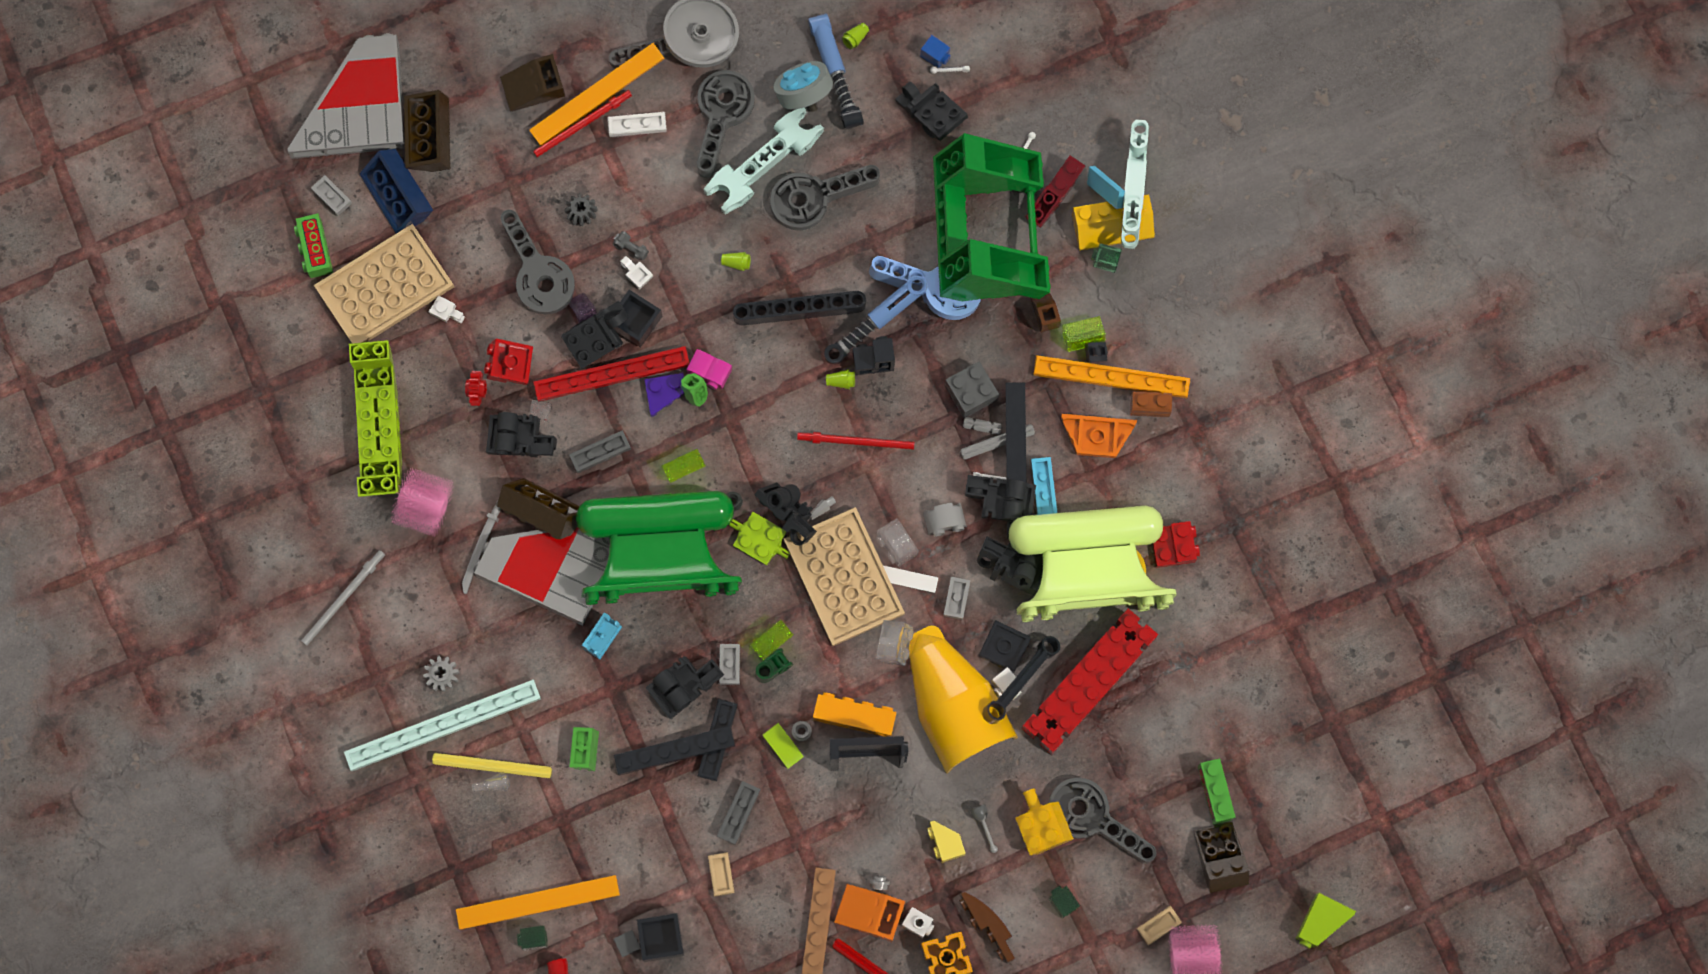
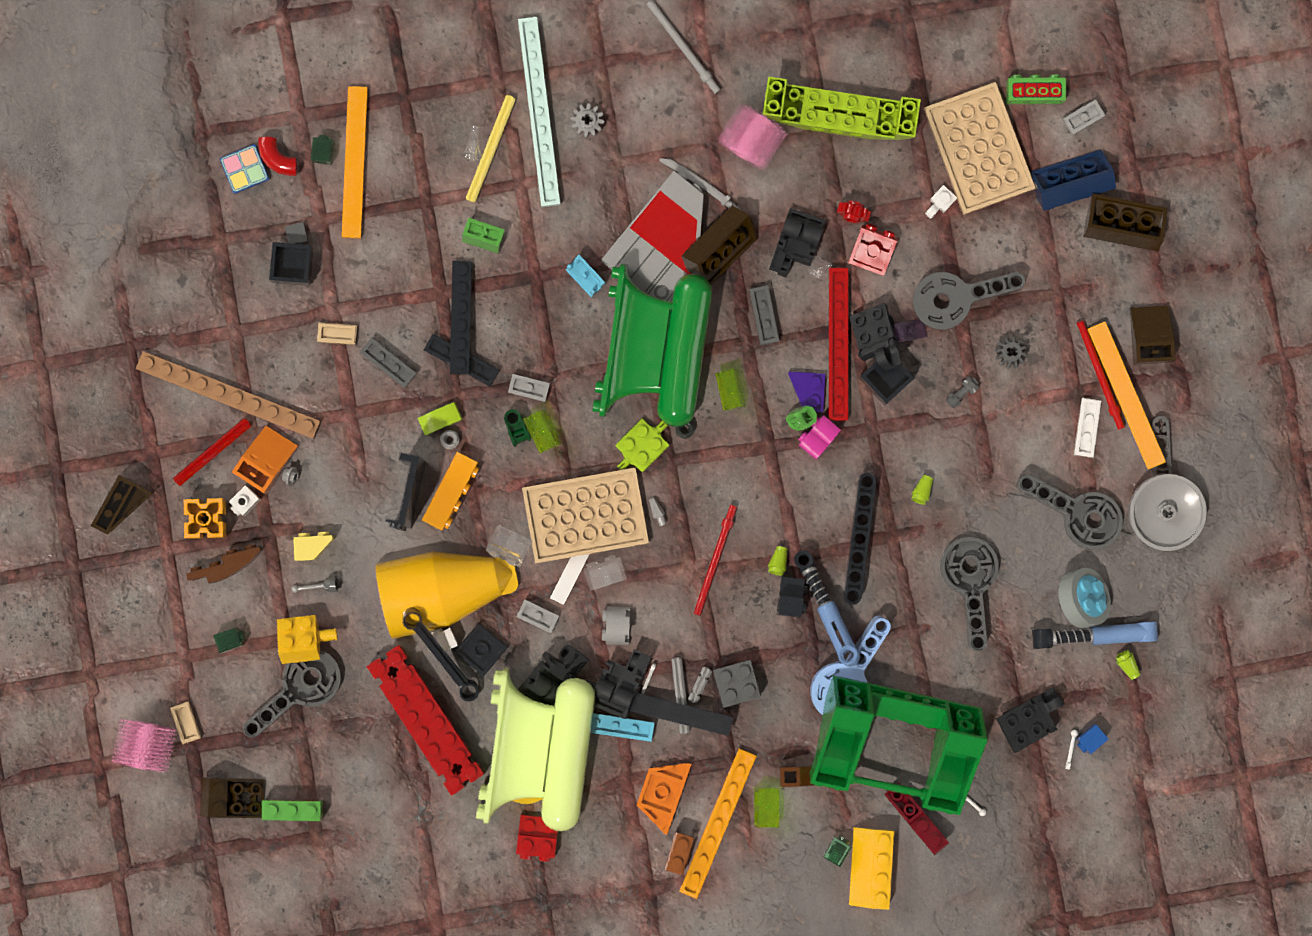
camera: 105 degrees right, 10 degrees up
(359, 106) = (1170, 164): light grey slope -> none
(637, 274) = (932, 392): white plate -> none
(681, 683) = (519, 340): black plate -> none
(737, 182) = (1002, 510): light aqua piece -> none
(785, 506) = (663, 476): black plate -> none
(1096, 352) = (745, 814): black tile -> none
(1105, 187) = (906, 868): medium azure tile -> none
(1135, 184) = (901, 897): light aqua piece -> none
(1322, 920) = (148, 874): lime slope -> none

